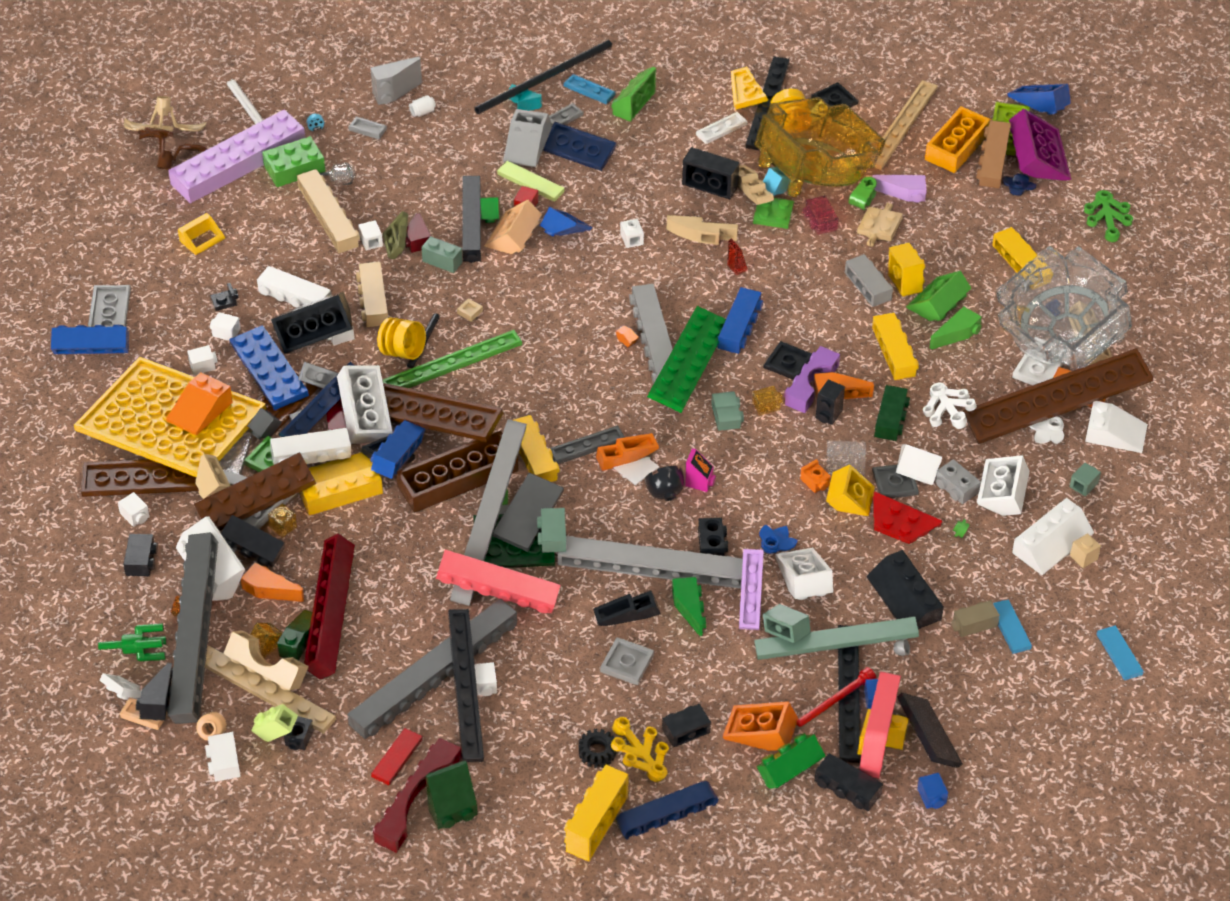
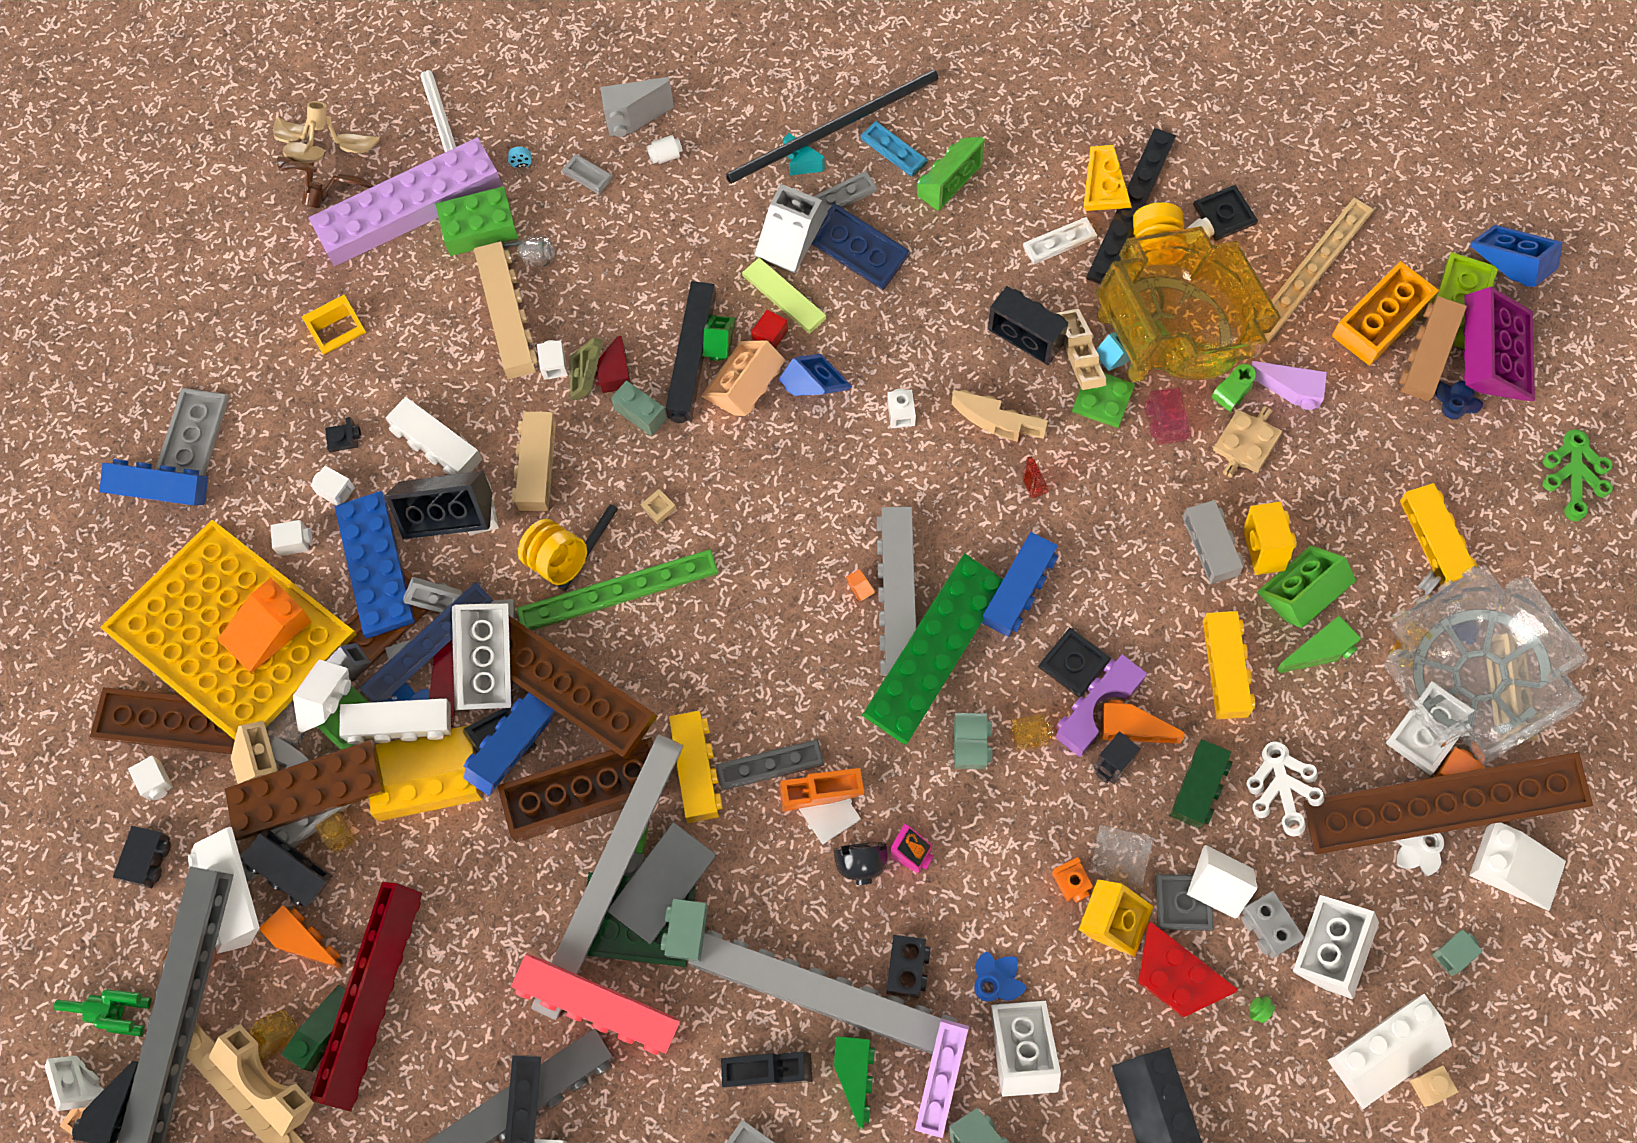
camera: 15 degrees right, 20 degrees up
(254, 434) = (320, 694): none -> white slope

